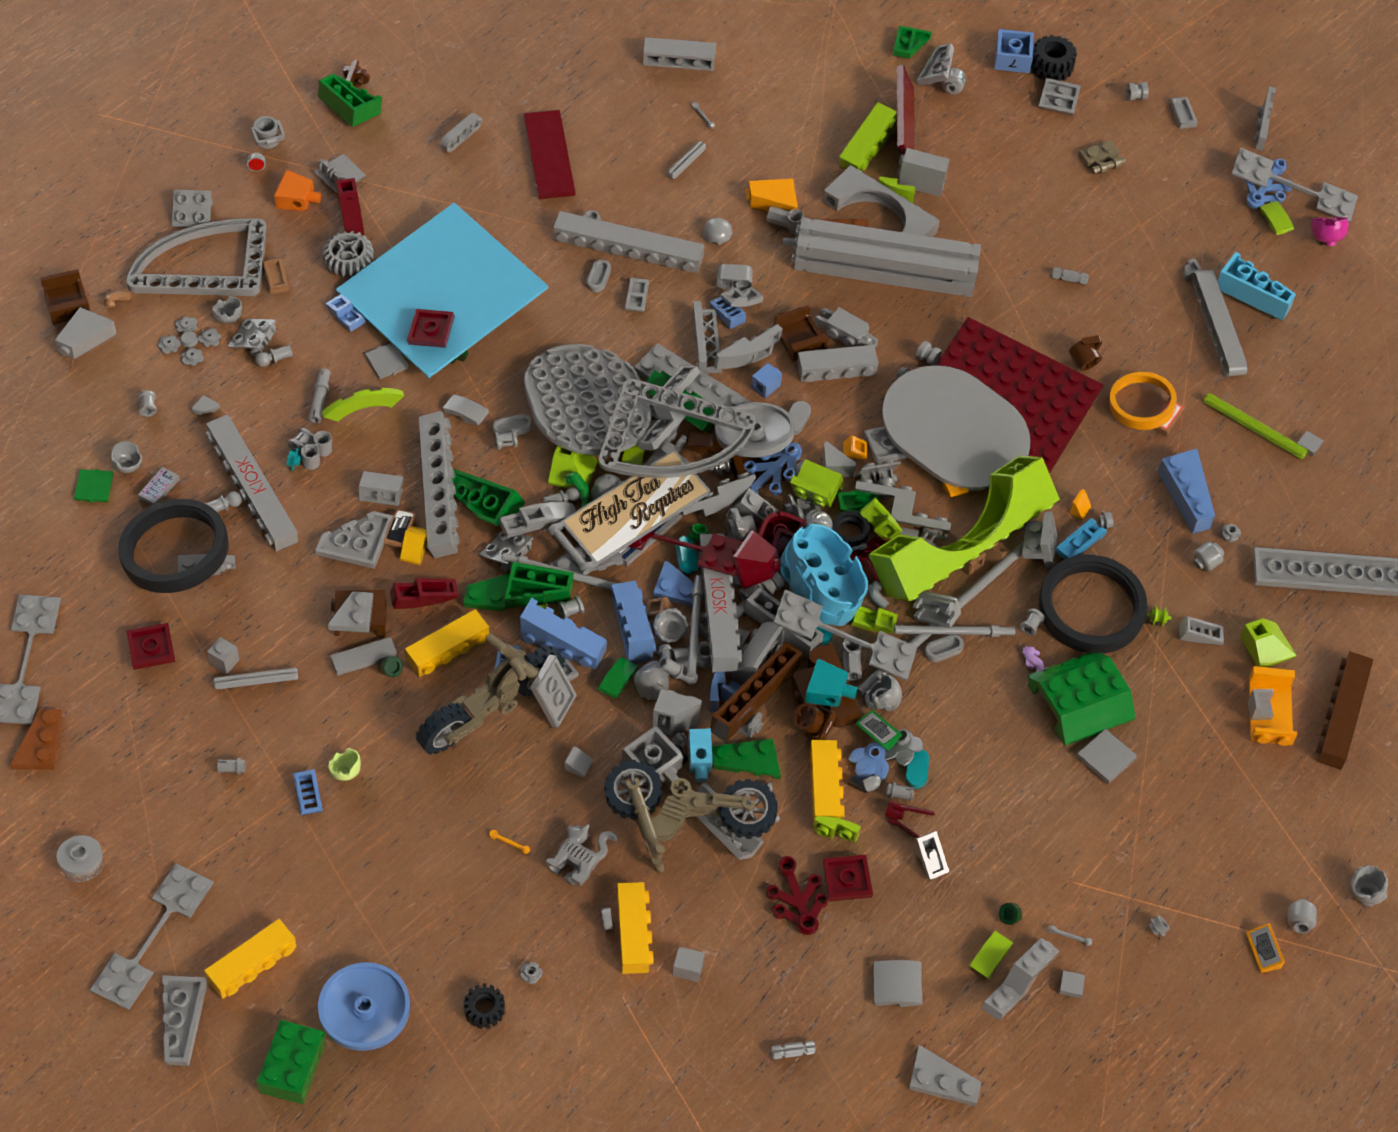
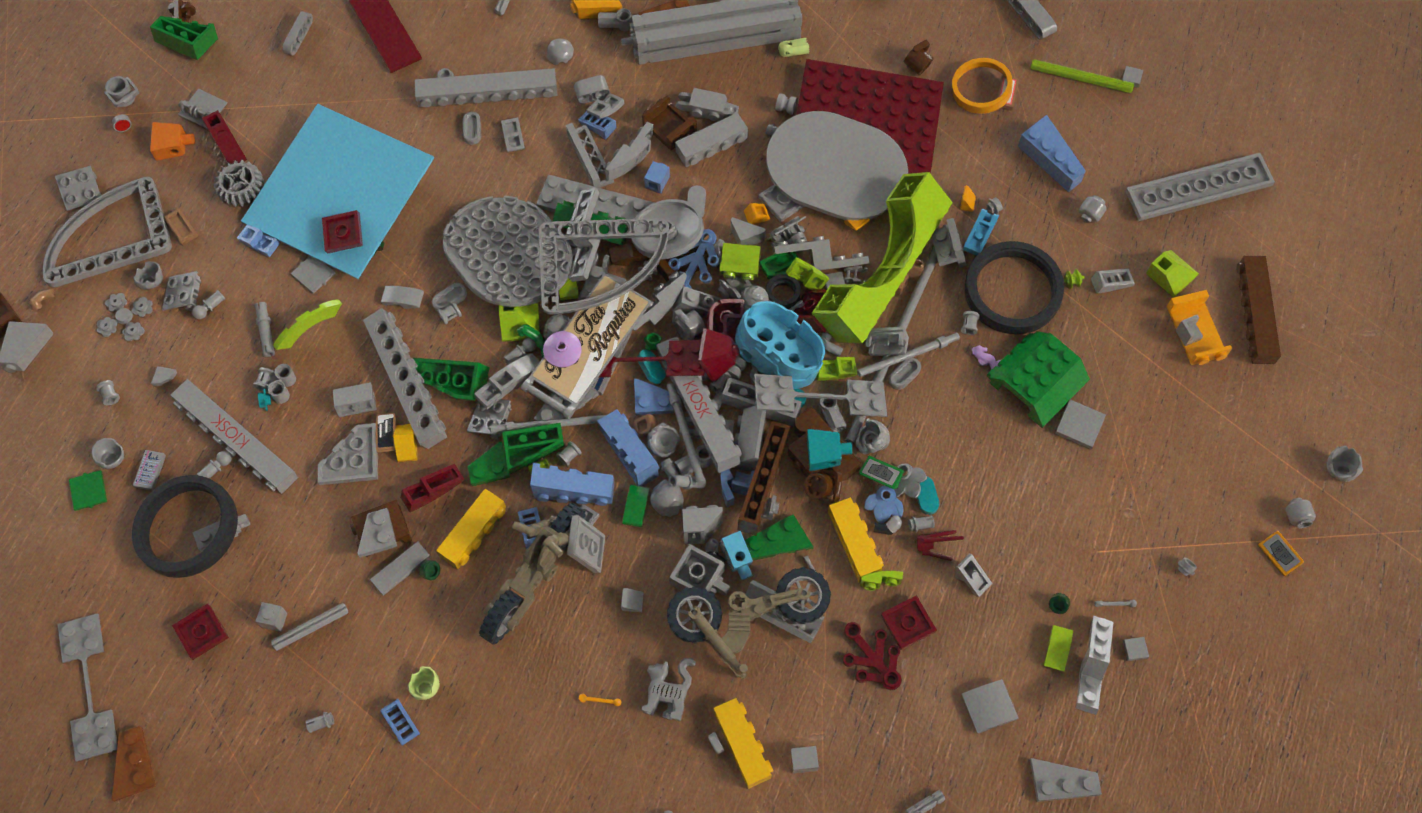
camera: 15 degrees left, 10 degrees up
(605, 513) = (562, 357): none -> lavender dish
(960, 302) = (793, 47): none -> yellowish green piece
(1229, 536) = (1097, 183): light grey plate -> none

